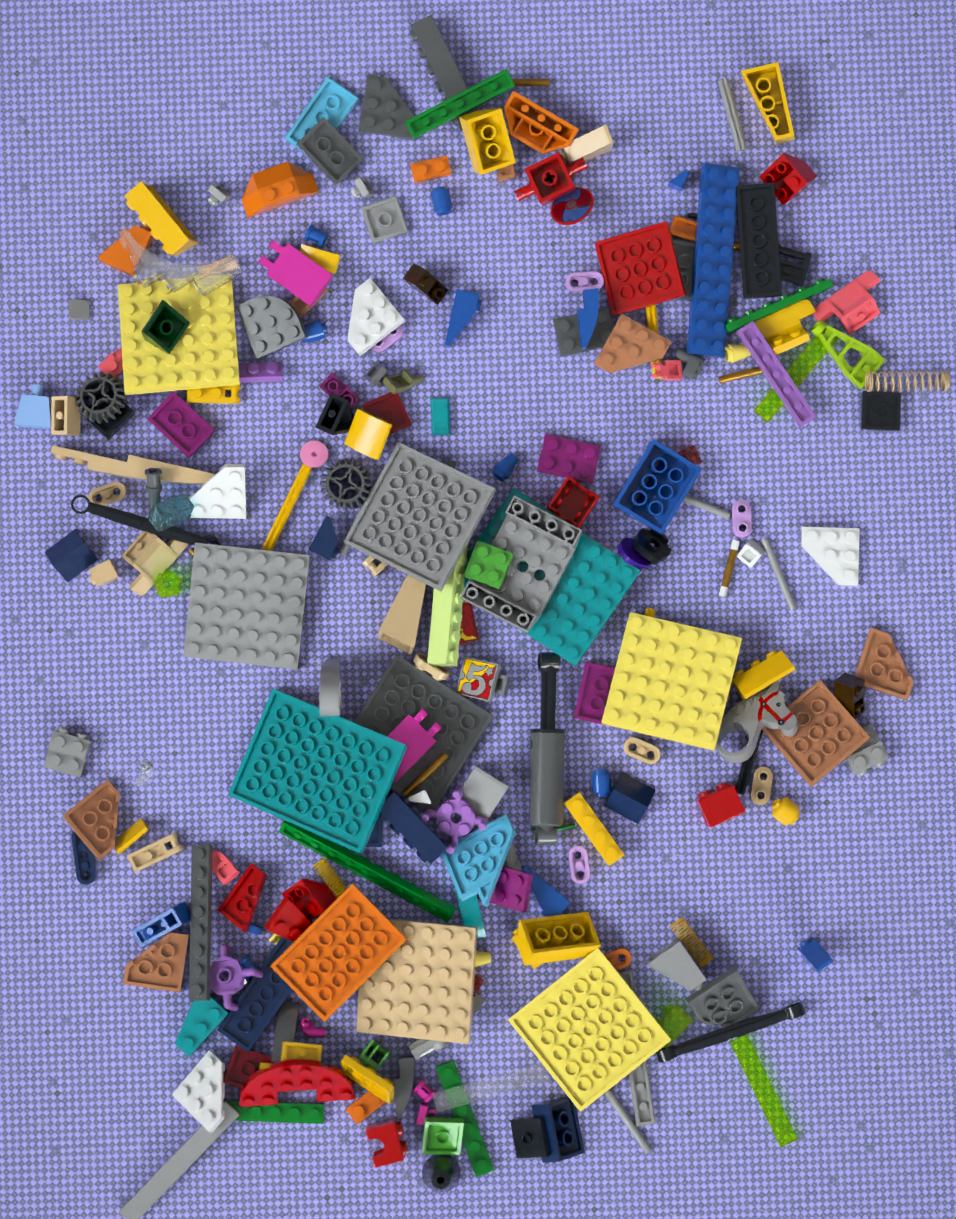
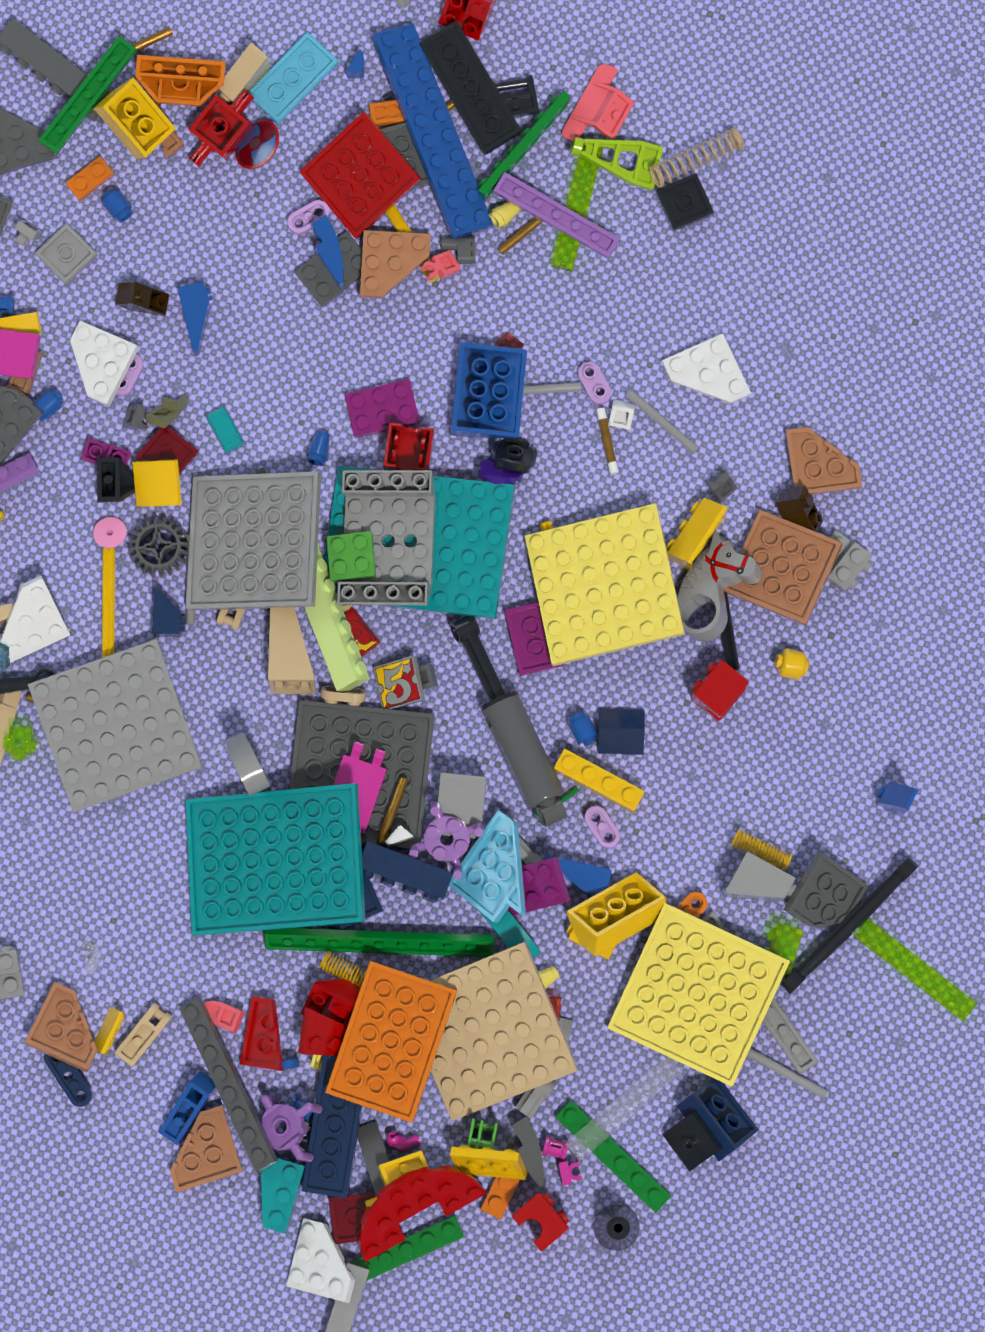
camera: 25 degrees left, 5 degrees down
(442, 1136) = (598, 1185): bright green plate -> none
(625, 165) = (293, 78): none -> medium azure tile
(641, 751) = (609, 676): tan plate -> none
(761, 785) = (753, 650): tan plate -> none
(784, 329) = (541, 165): yellow plate -> none
(800, 648) = (722, 487): none -> flat silver tile

